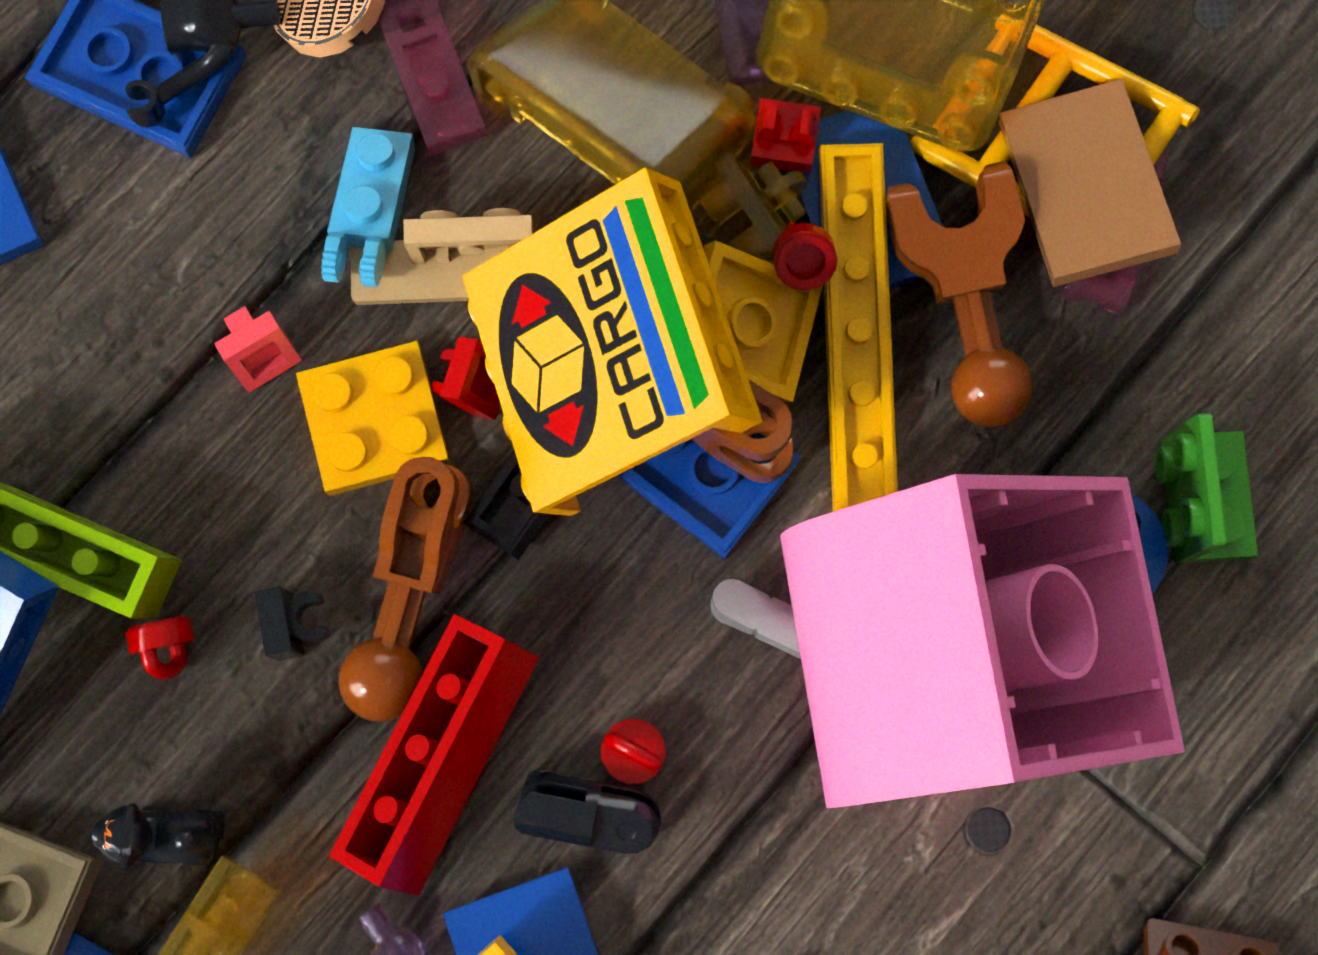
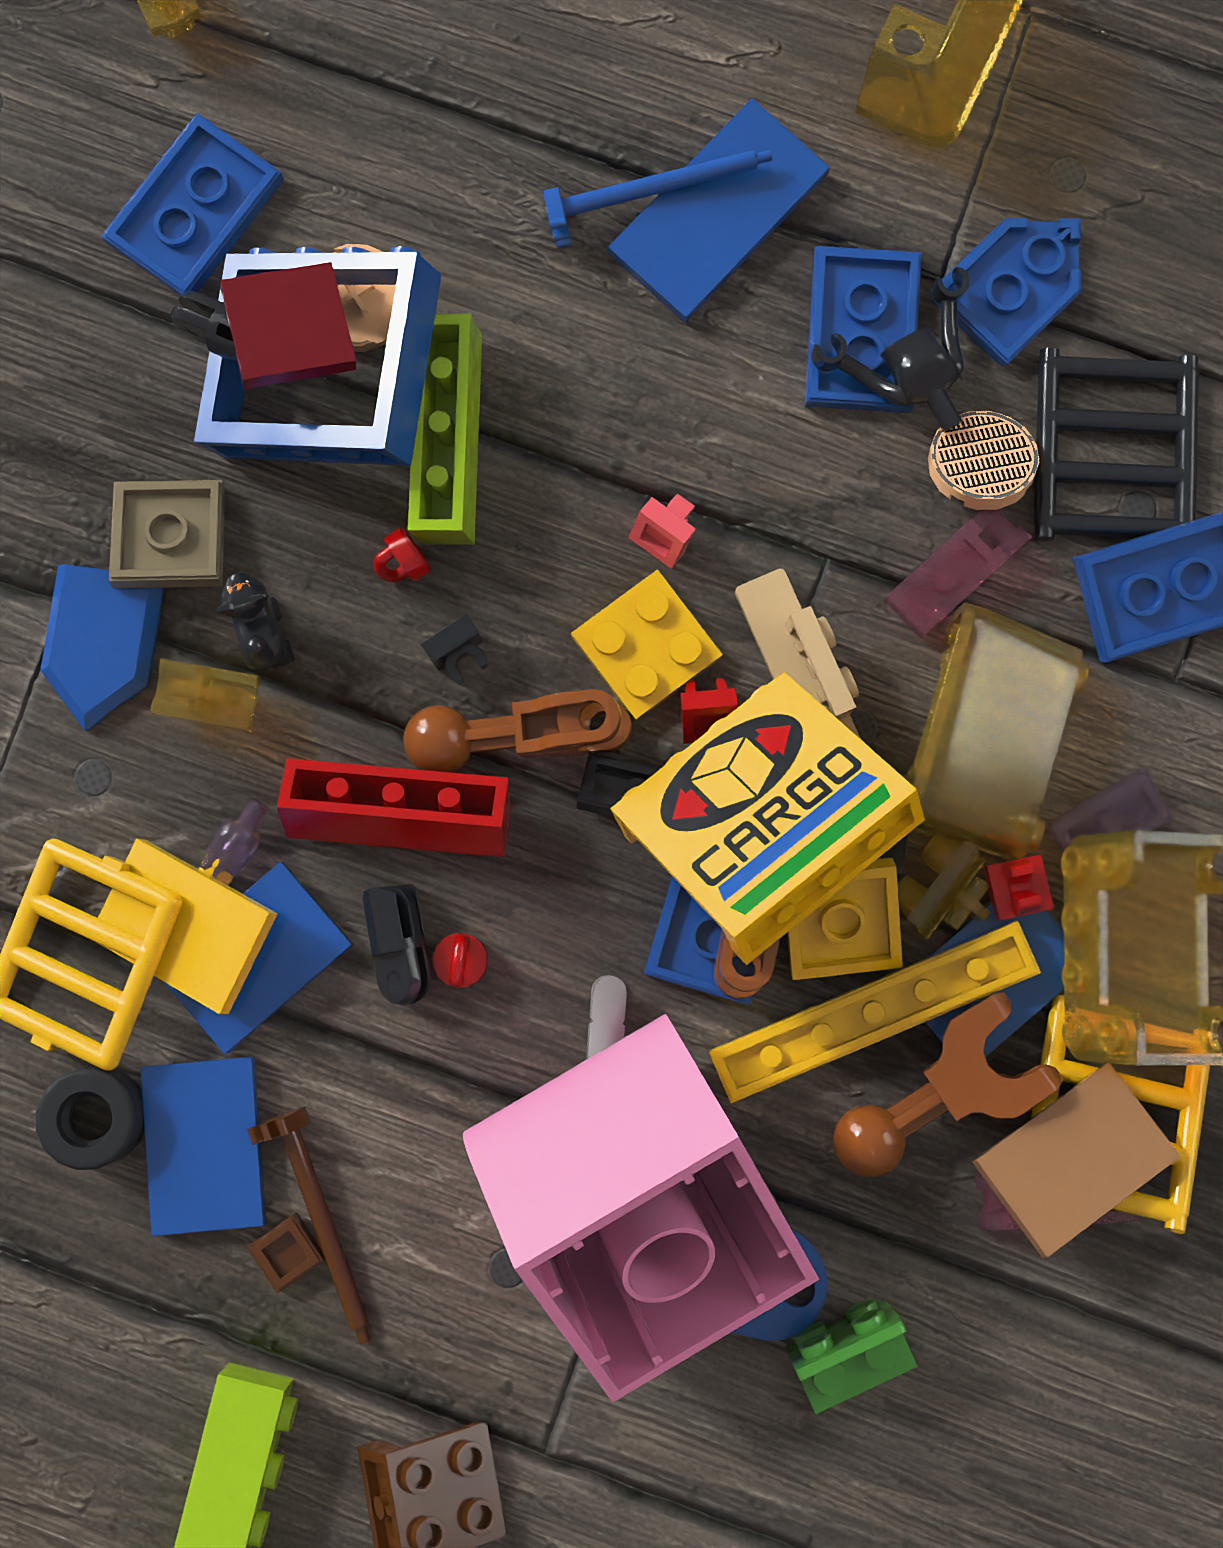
camera: 70 degrees right, 5 degrees up
(368, 202) = (822, 567): medium azure hinge -> none
(804, 256) = (914, 944): red tile -> none

